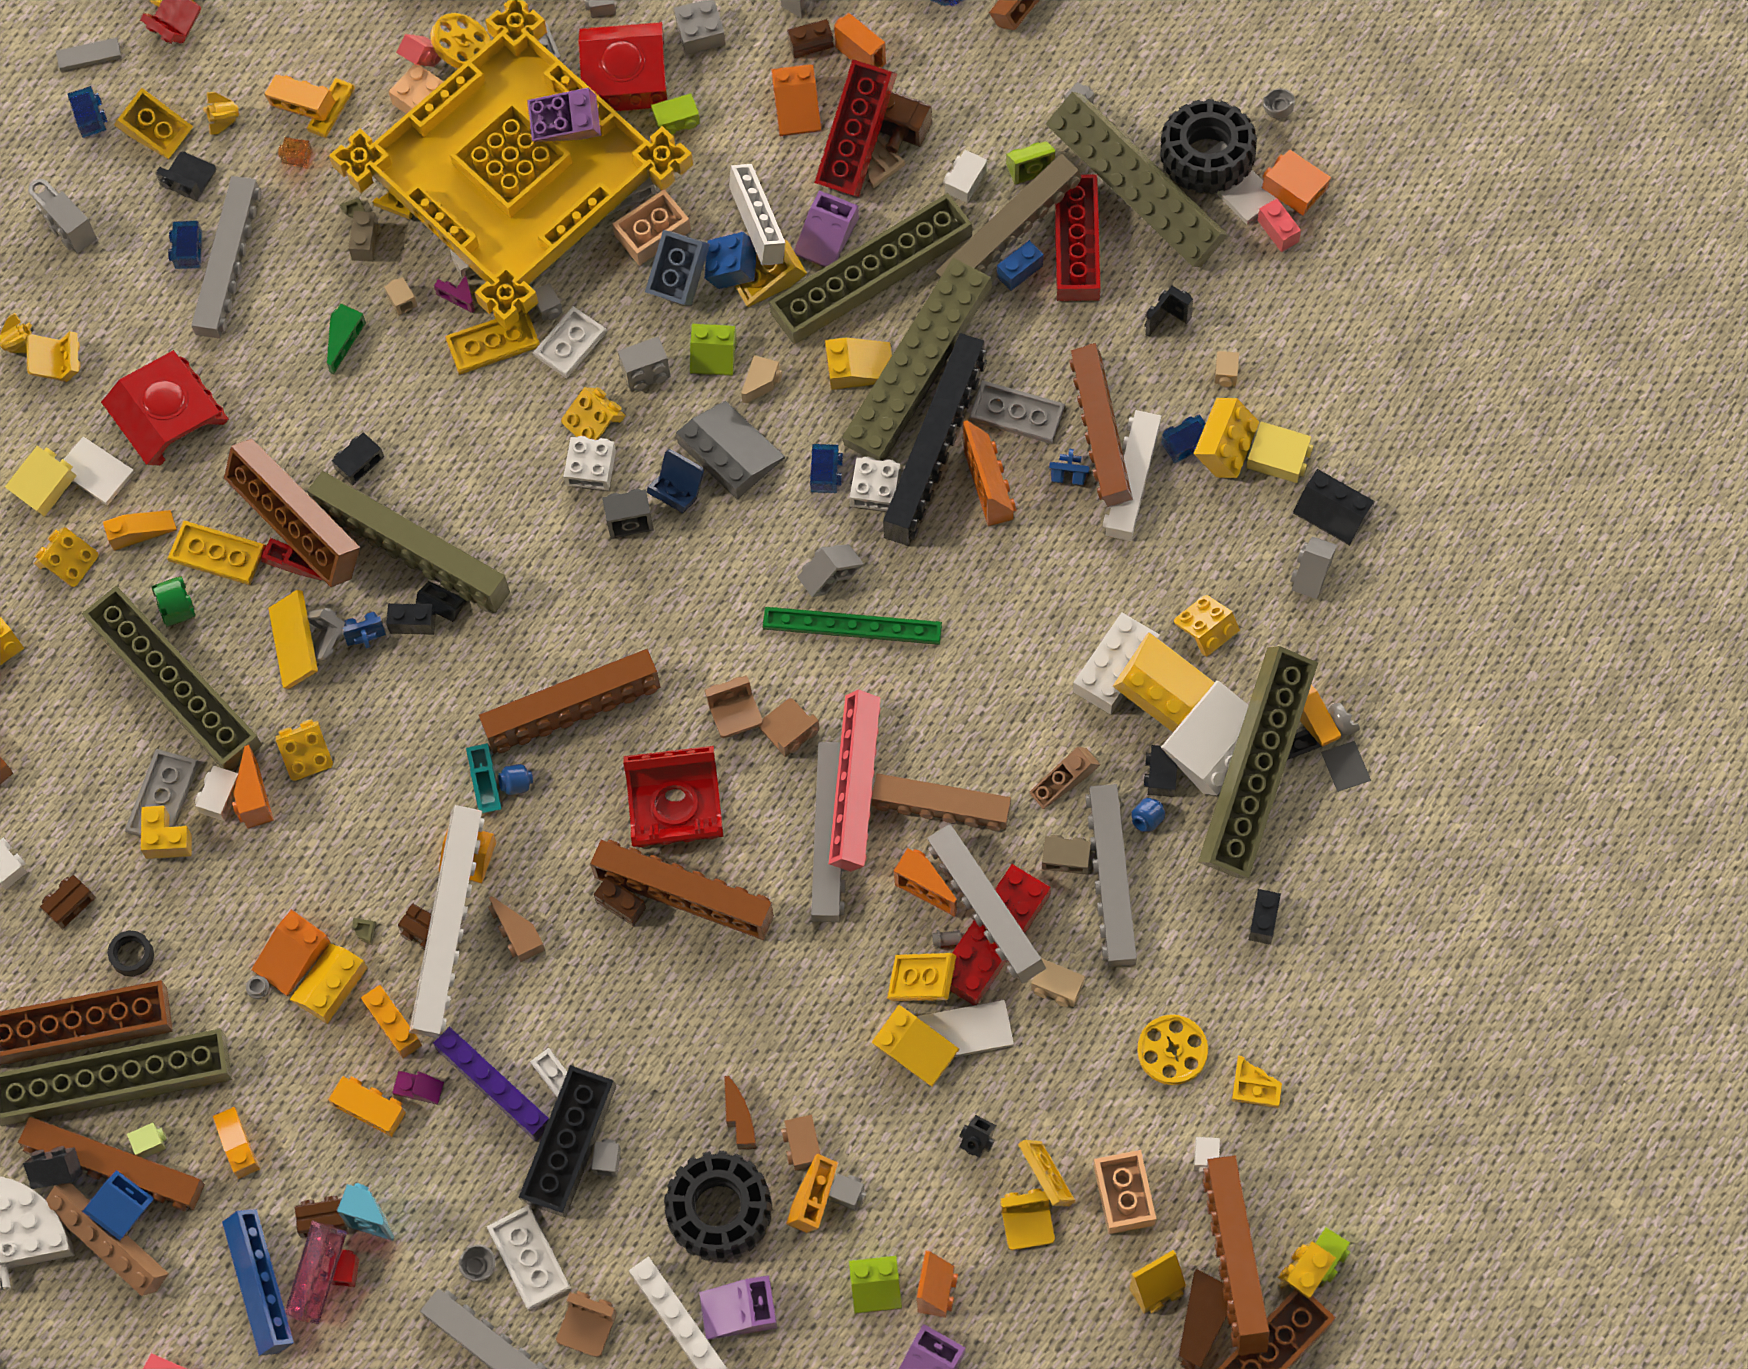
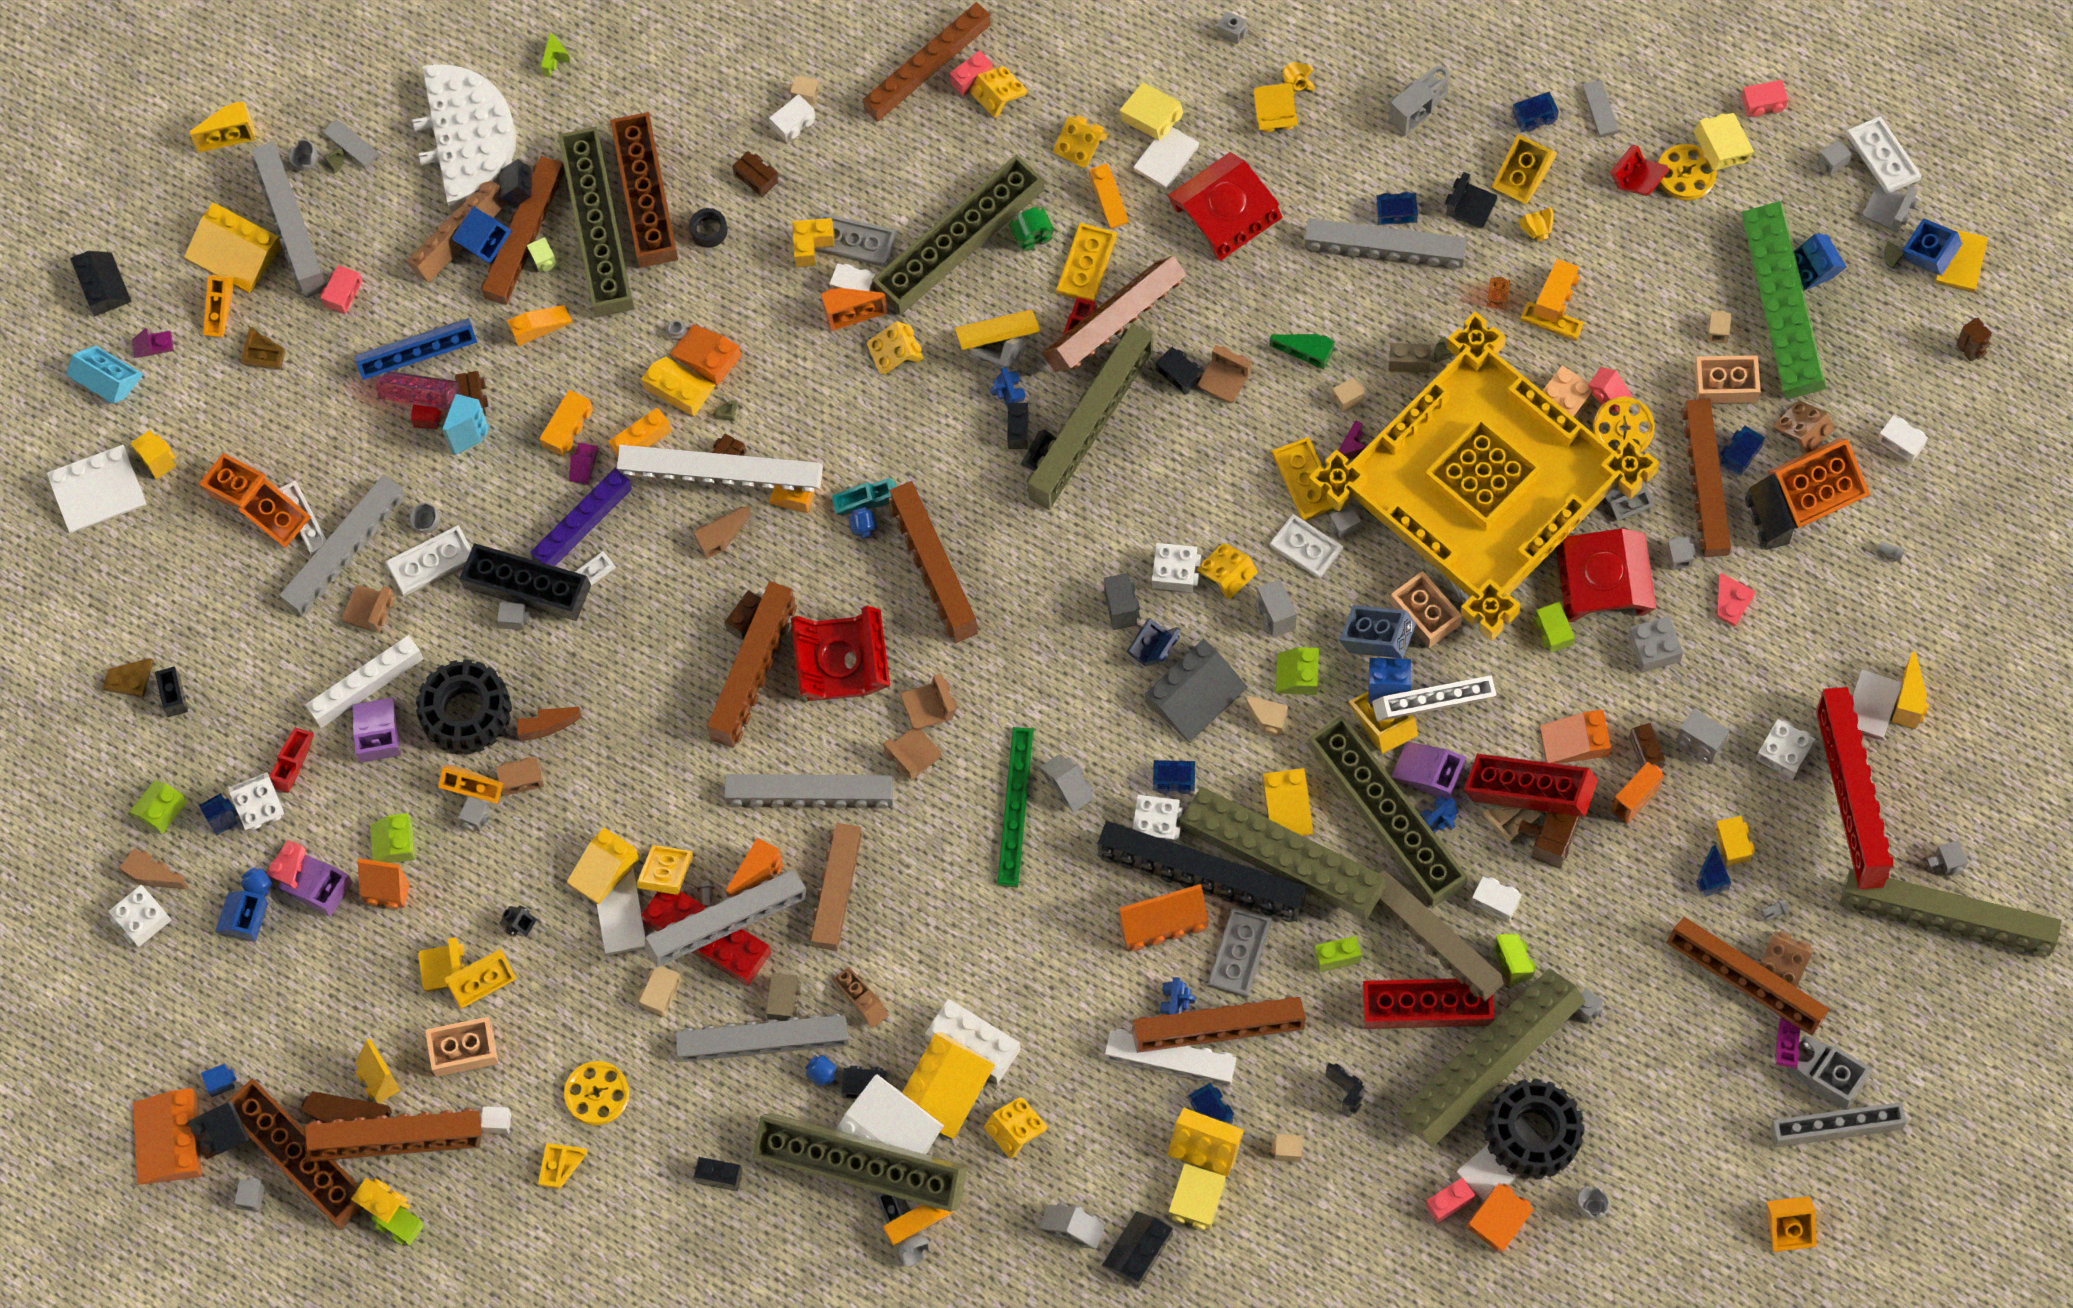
camera: 90 degrees right, 0 degrees up
(366, 412) = (1225, 374): none -> medium nougat bracket
(564, 116) = (1521, 513): medium lavender slope -> none
(854, 781) = (851, 806): coral brick -> none
(868, 218) = (1443, 816): none -> blue hips
(1020, 265) = (1396, 950): blue brick -> none
(1023, 318) = (1337, 953): none -> lime brick
(1346, 766) = (872, 1256): dark grey sticker -> none

